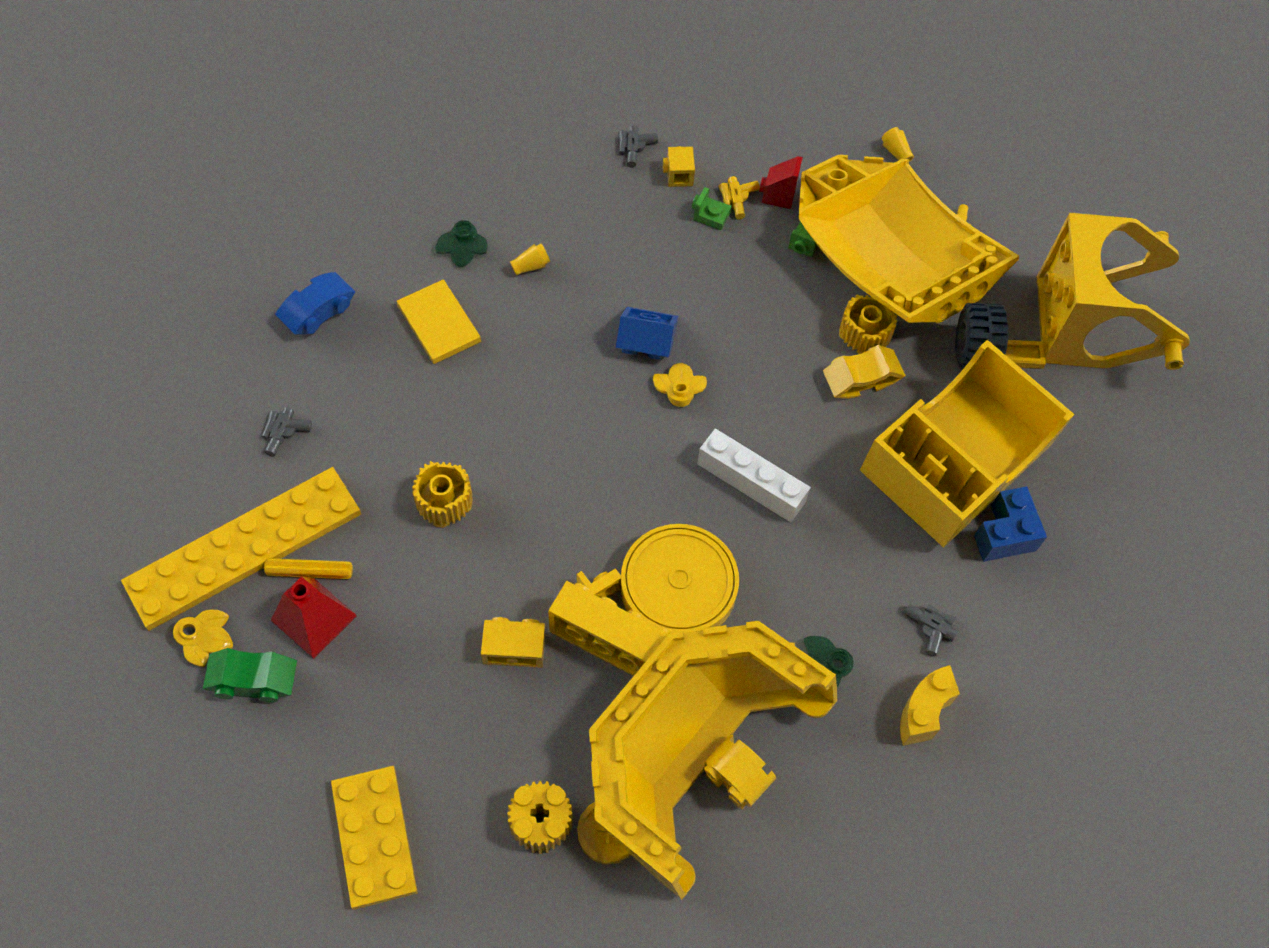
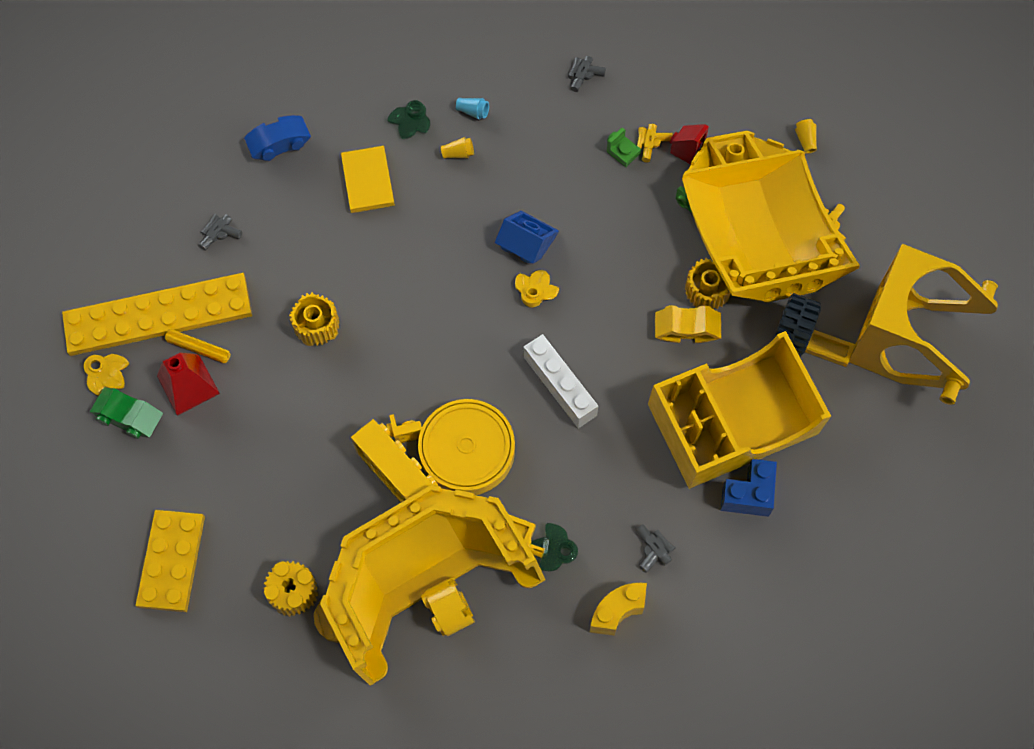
camera: 25 degrees right, 5 degrees up
(513, 642) = (323, 452): yellow brick -> none
(528, 211) = (474, 107): none -> medium azure cone
(679, 166) = (611, 102): yellow brick -> none

